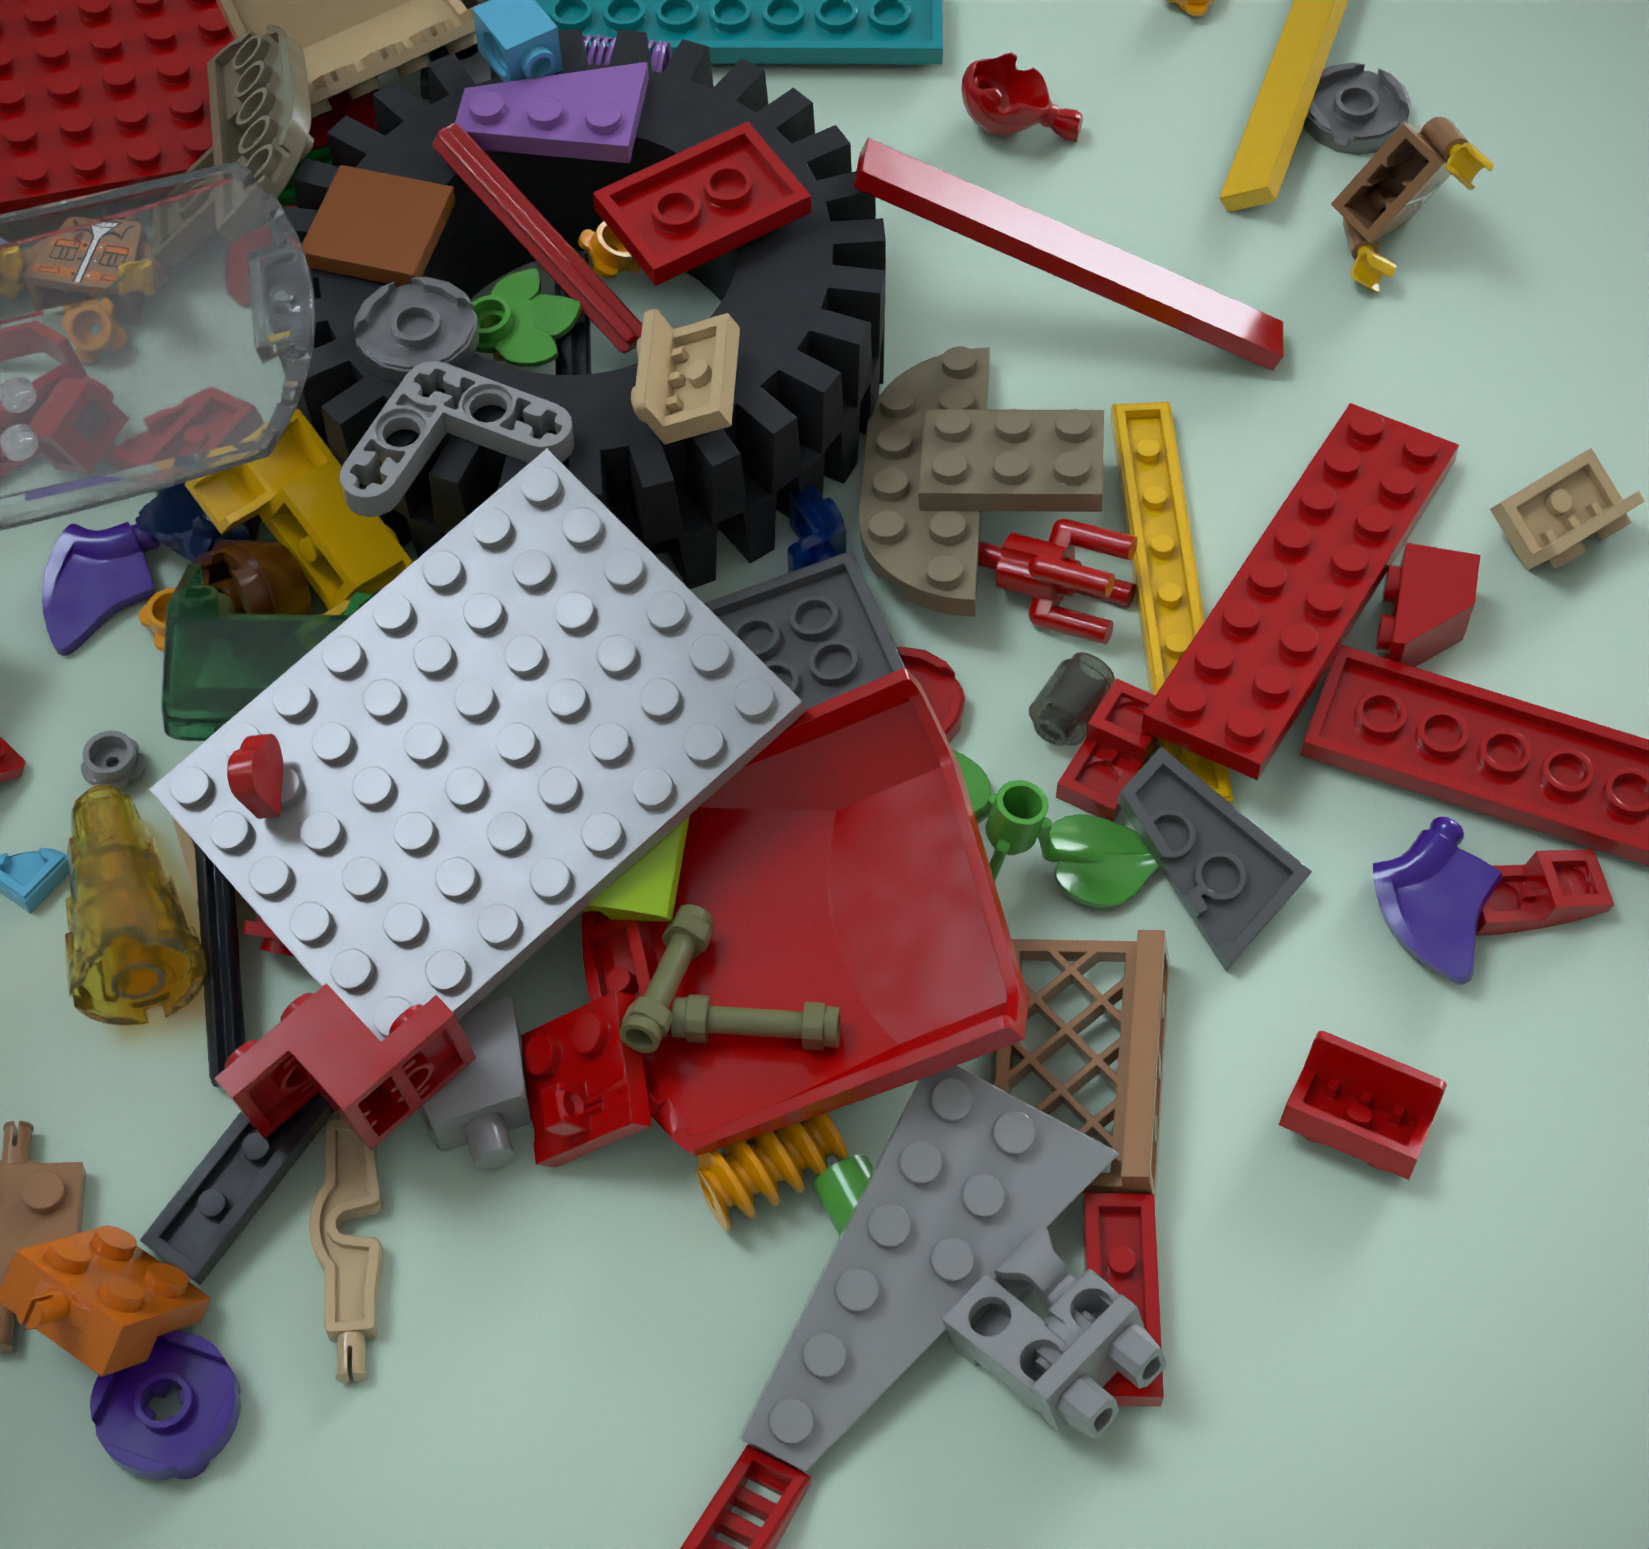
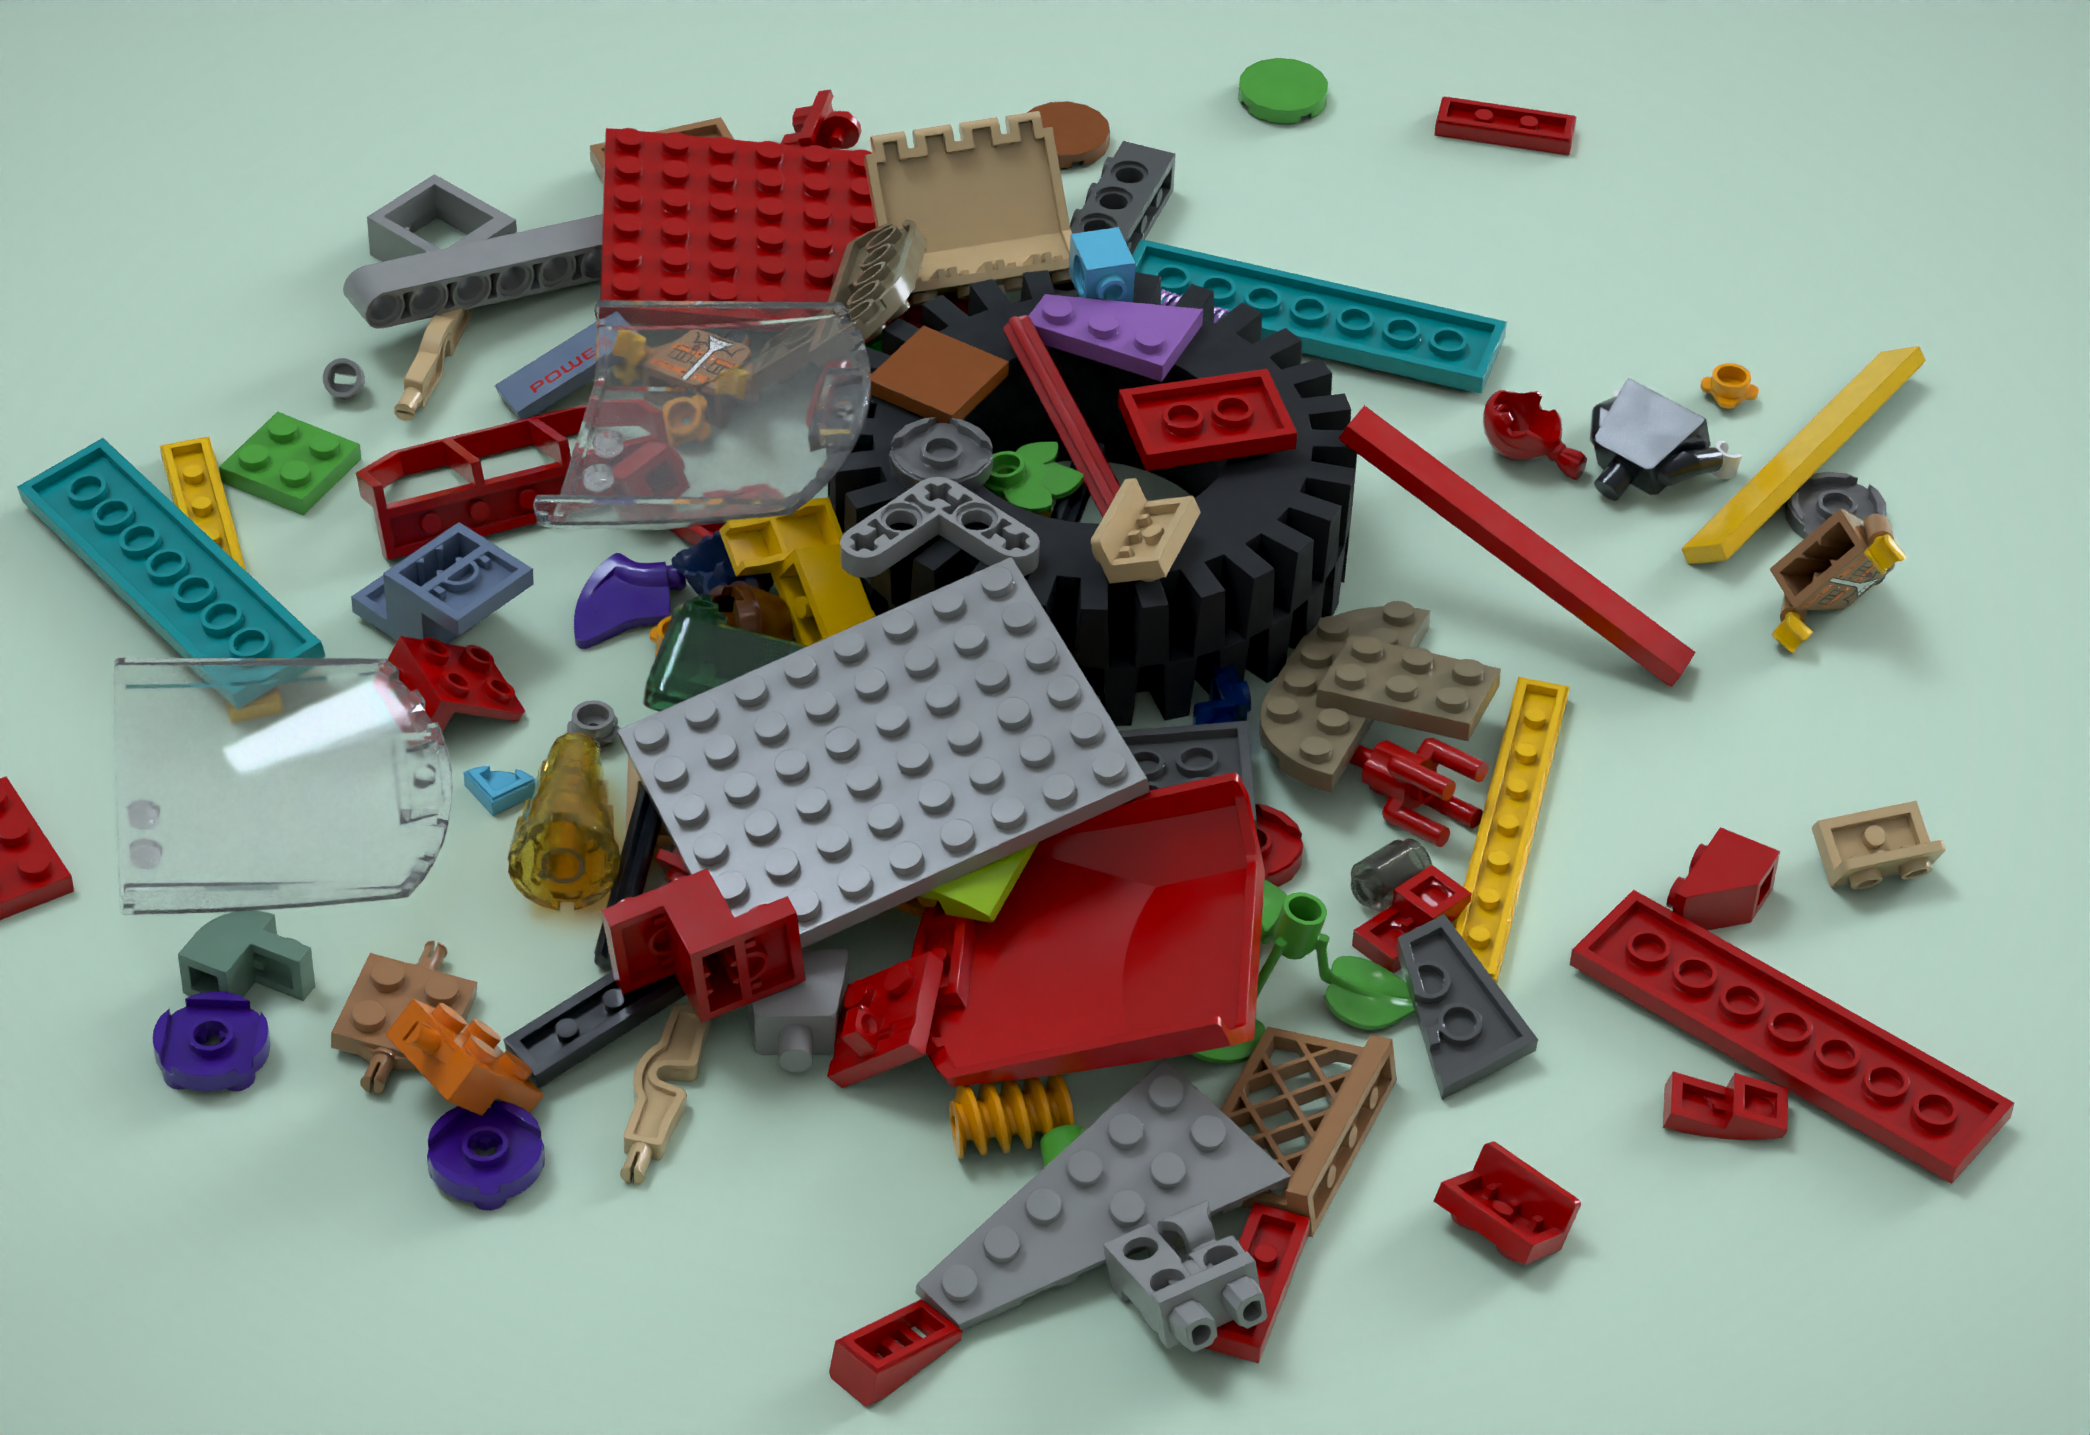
camera: 15 degrees right, 15 degrees down
(257, 775) = (704, 730): red tile -> none
(607, 252) = (1122, 449): light orange plate -> none
(648, 1016) = (952, 973): olive bar -> none
(697, 1018) = (987, 994): olive bar -> none
(1145, 80) = (1652, 443): none -> torso
(1299, 592) = (1619, 841): red plate -> none
(1436, 898) = (1636, 1086): dark purple arm -> none

